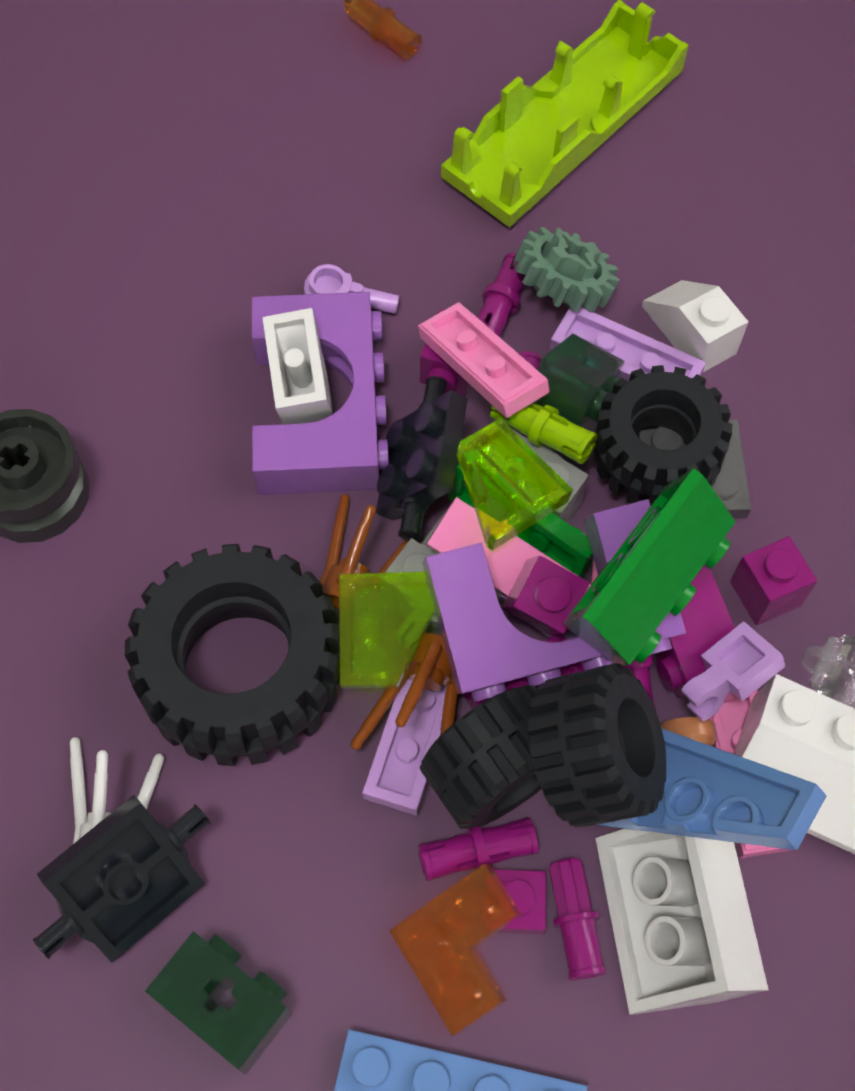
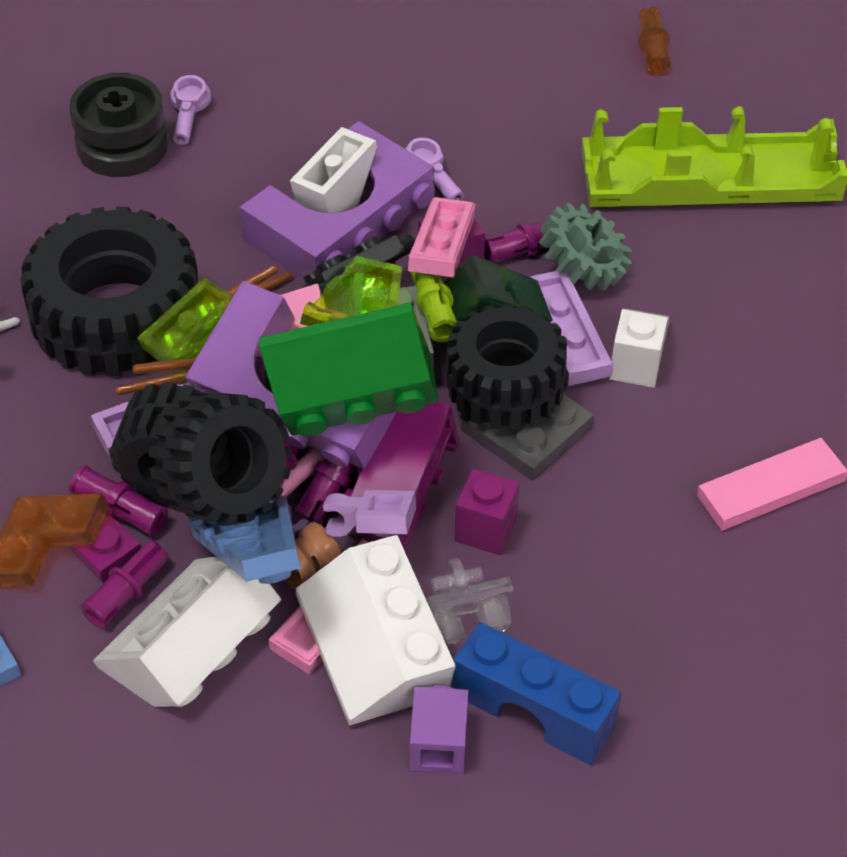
camera: 45 degrees right, 15 degrees down
(46, 390) = (188, 96): none -> lavender plate

